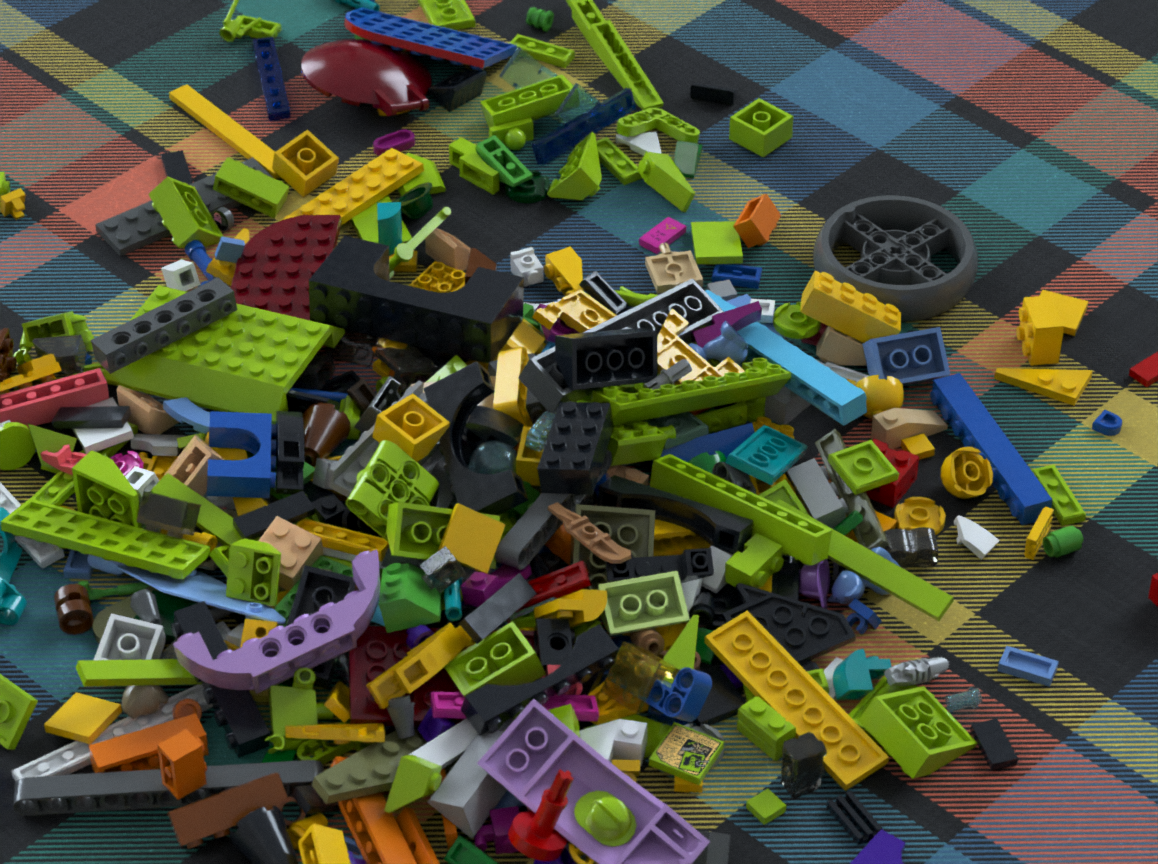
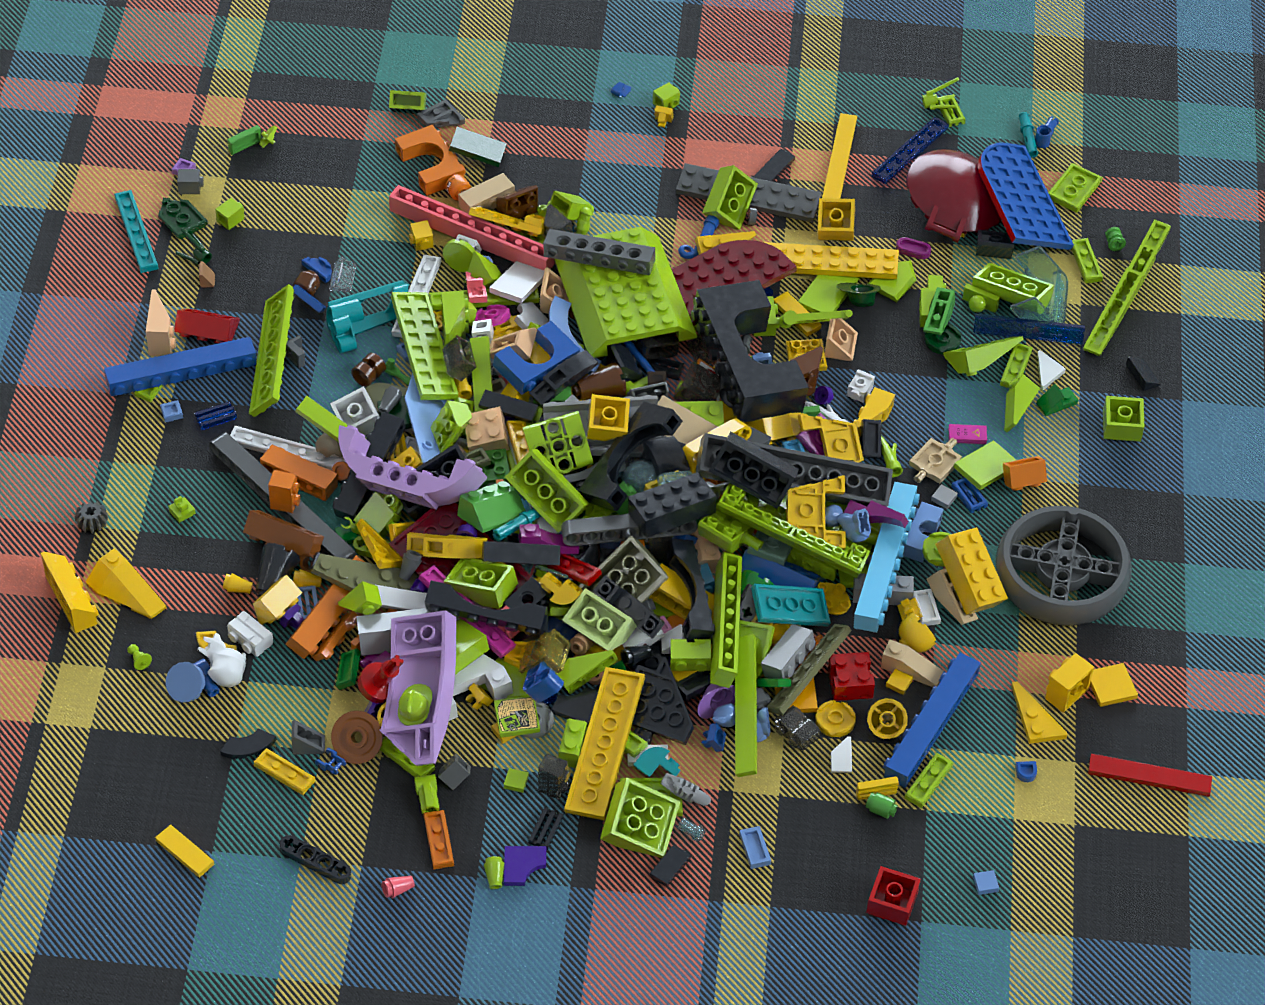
camera: 50 degrees right, 10 degrees up
(83, 718) = (295, 430): yellow tile -> none
(91, 417) = (517, 273): black tile -> none
(181, 275) = (677, 231): white brick -> none
(229, 249) = (713, 236): medium blue tile -> none
(251, 187) = (787, 209): lime brick -> none
(389, 224) = (811, 296): teal brick -> none
(442, 570) = (518, 507): clear smoke brick -> none
(472, 538) = (554, 504): yellow tile -> none
(595, 541) = (610, 565): medium nougat piece -> none
(659, 119) = (1076, 358): lime beam -> none
(670, 375) = (782, 511): light grey axle -> none
(768, 309) = (929, 525): white tile -> none
(863, 467) = (827, 660): lime tile -> none
(908, 356) = (962, 626): medium blue brick -> none

